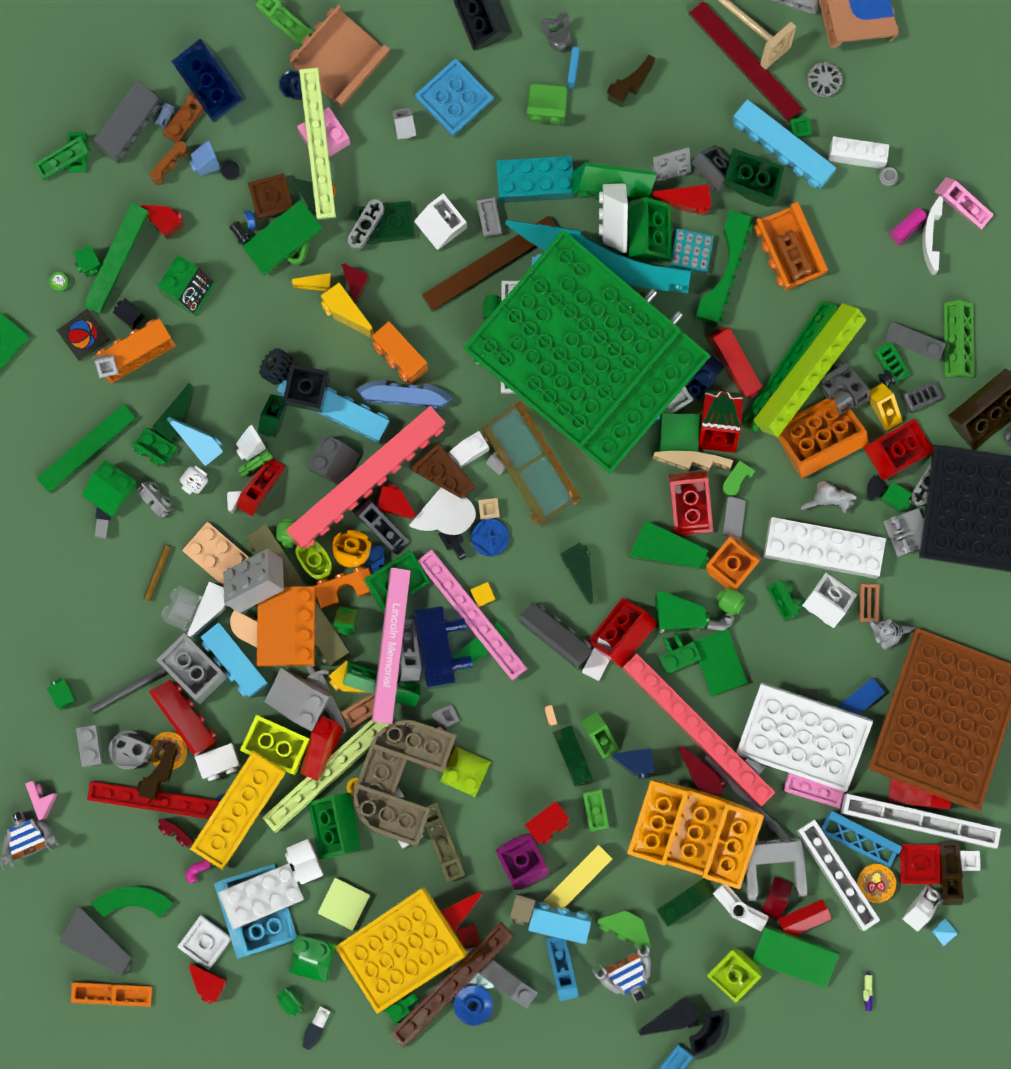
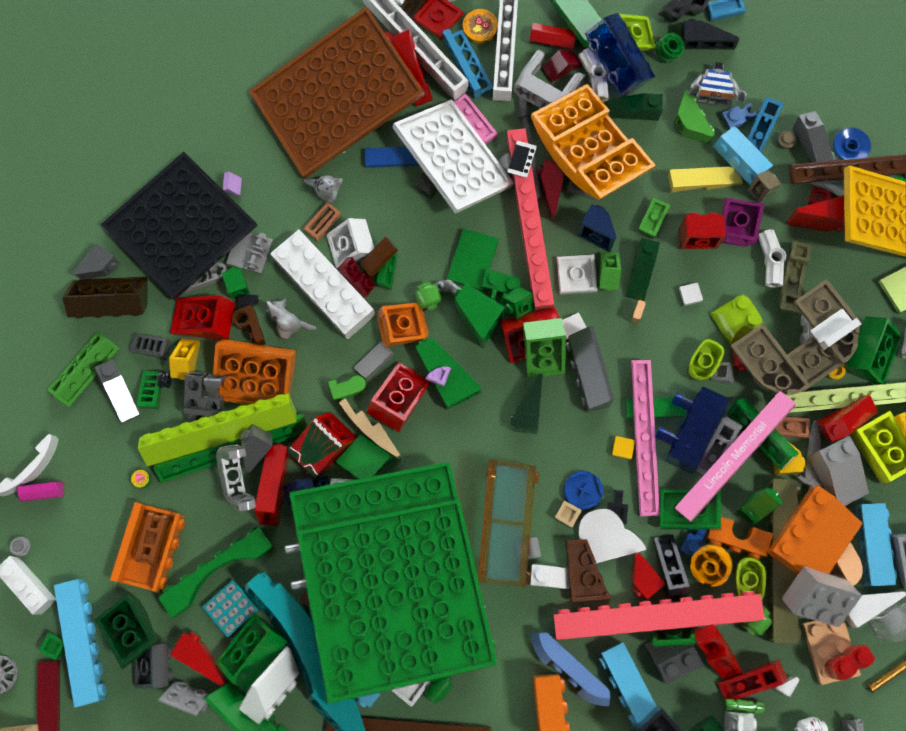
camera: 140 degrees left, 5 degrees down
(202, 544) = (846, 665): none -> red brick
(303, 485) = (717, 651): none -> red slope
(342, 471) = (674, 637): none -> green slope
(383, 805) = (834, 328): none -> white panel
(467, 713) = (705, 360): none -> lime piece
(480, 856) = (774, 269): none -> white piece
(518, 766) = (690, 294): none -> white tile
(532, 971) = (787, 139): none -> dark tan plate
(590, 961) = (737, 116): none -> medium blue plate
(604, 624) = (544, 347): none -> bright green slope
(624, 714) = (576, 274): none -> white tile
(653, 648) = (518, 302): none -> green brick
(670, 539) = (439, 375): none -> lavender tile
(702, 979) = (669, 47): none -> green wheel
(731, 933) = (619, 54): none -> clear blue piece
(742, 773) = (522, 159): none -> black sticker
(770, 378) = (256, 444): none -> dark grey slope
(780, 354) = (224, 456): none -> light grey connector
(795, 601) = (379, 256): none -> reddish brown tile
(801, 572) = (359, 280): none -> dark red slope
(840, 292) = (141, 478): none -> tile
(844, 468) = (251, 324): none -> reddish brown plate
(920, 800) = (405, 47): none -> red slope
(969, 577) = (232, 183): none -> lavender tile

